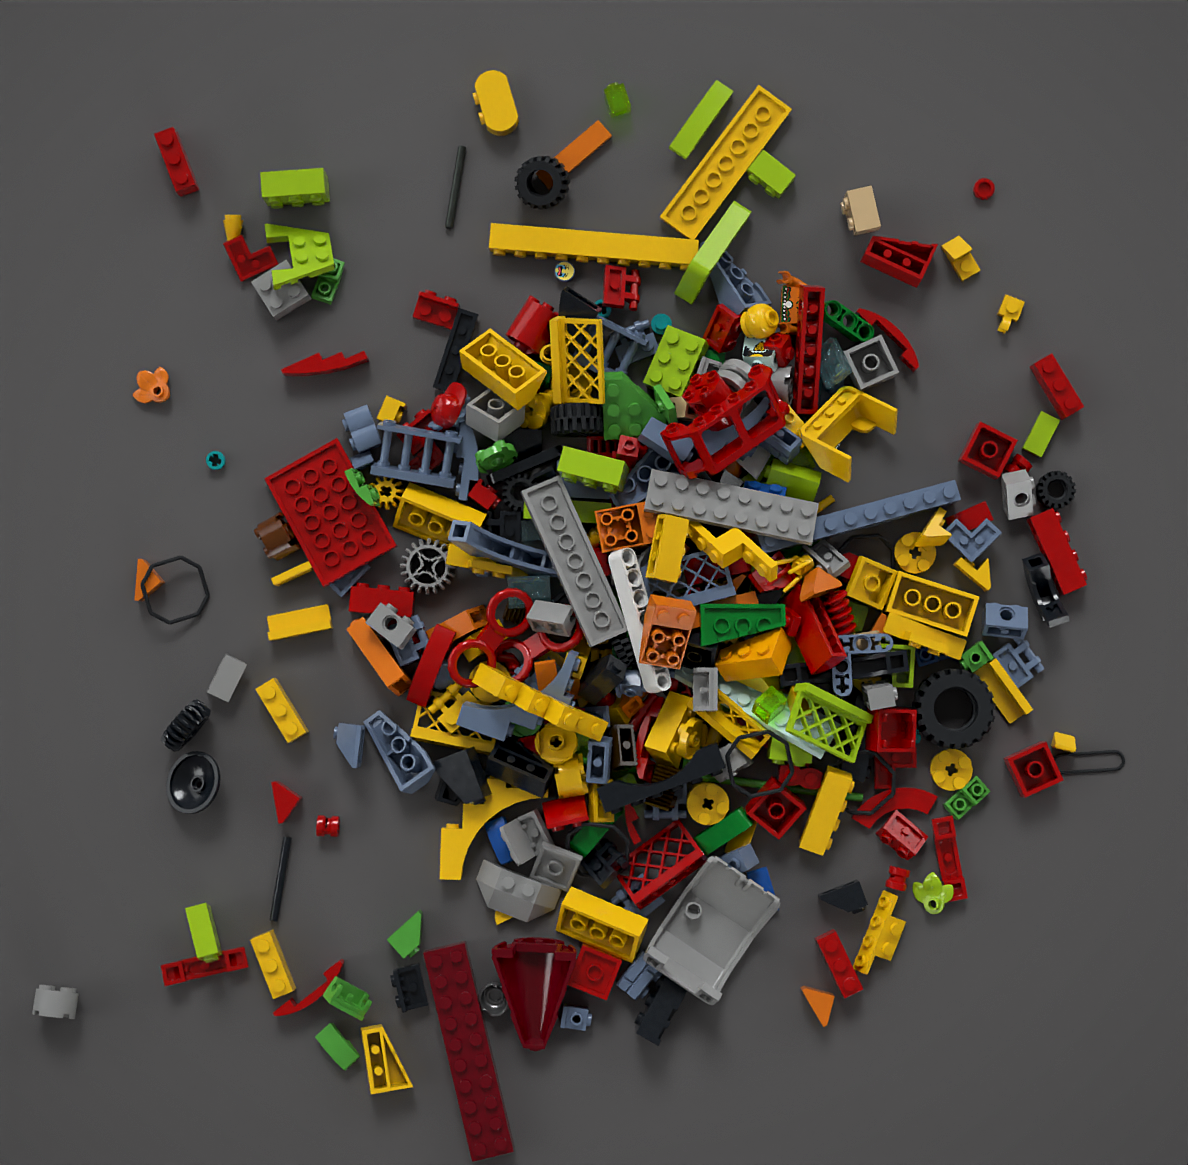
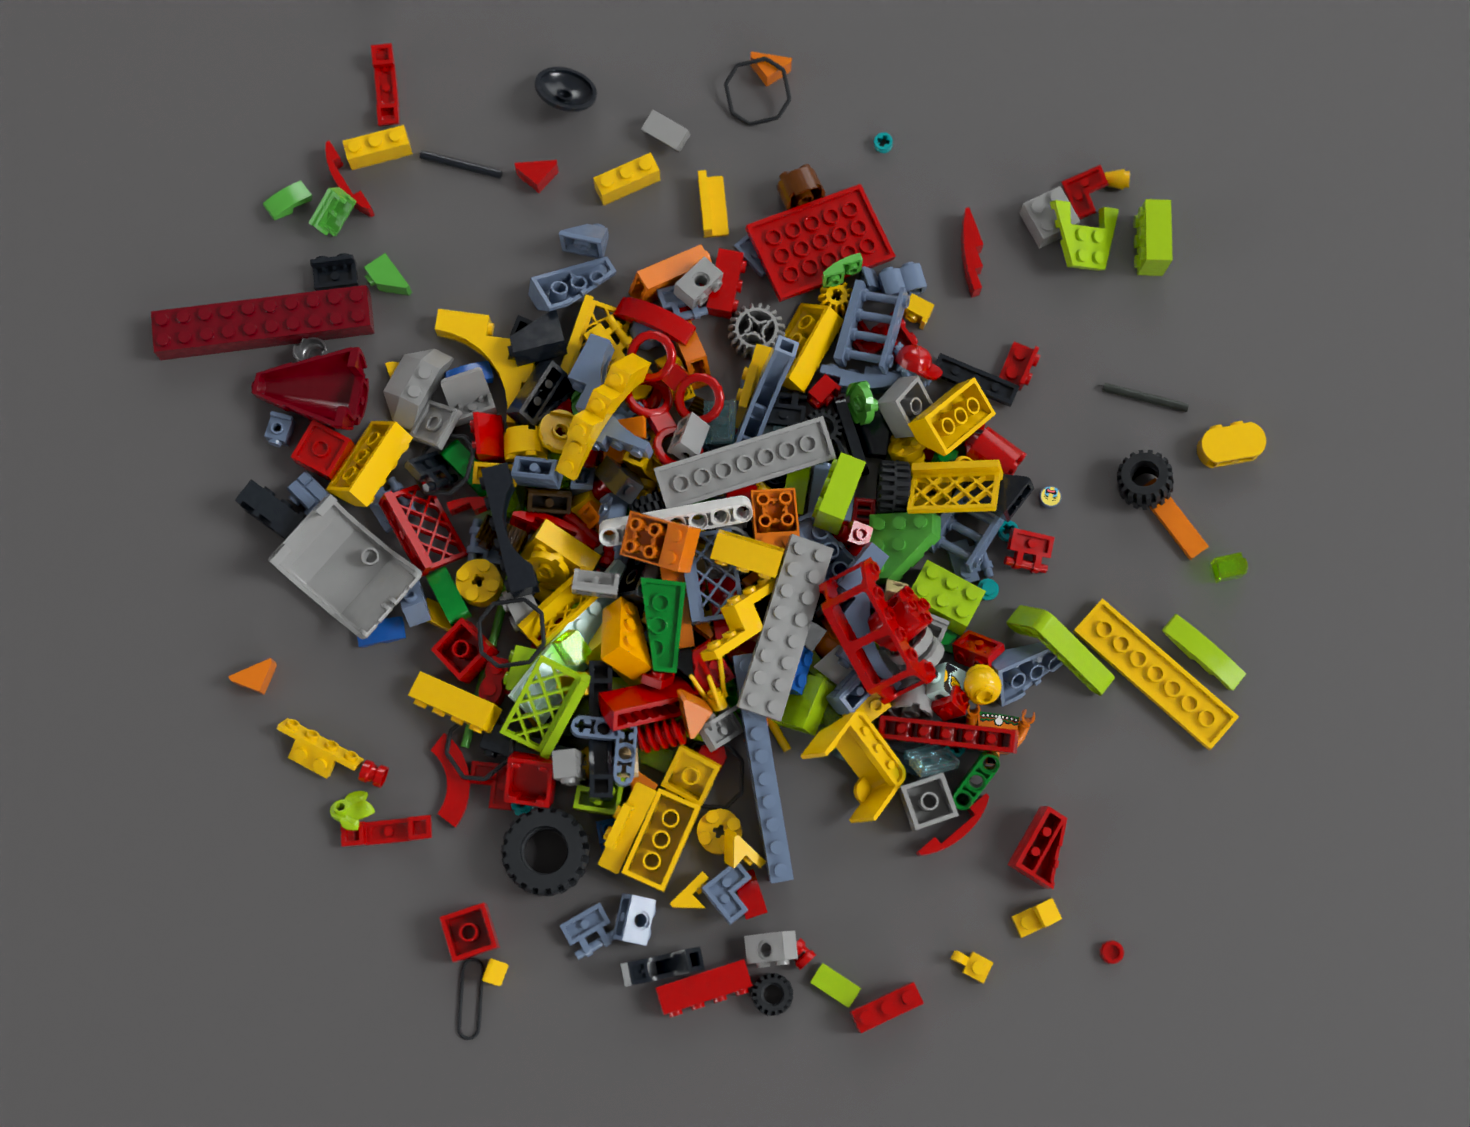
camera: 90 degrees right, 10 degrees down
(150, 384) = (961, 91): orange plate -> none
(176, 161) = (1186, 131): red brick -> none
(185, 725) = (622, 86): black gear -> none
(204, 932) = (417, 83): lime brick -> none
(292, 574) = (761, 198): yellow tile -> none
(328, 283) = (1054, 265): bright green slope -> none
(328, 826) = (506, 211): red wheel -> none
(382, 1063) = (265, 238): yellow wedge -> none
(591, 245) = (1075, 523): yellow brick -> none
(664, 404) = (900, 574): bright green plate -> none
(770, 174) = (1140, 720): lime brick -> none
(839, 963) = (292, 701): red brick -> none
(846, 897) = (361, 716): black slope -> none
(861, 210) = (1095, 809): tan brick -> none
(902, 835) = (418, 784): red bracket -> none
(961, 763) = (475, 834): yellow plate -> none
(966, 798) = (449, 858): bright green slope -> none
(981, 650) = (603, 891): bright green brick -> none
(987, 450) = (822, 921): red brick -> none
(1005, 692) = (558, 910): yellow panel -> none

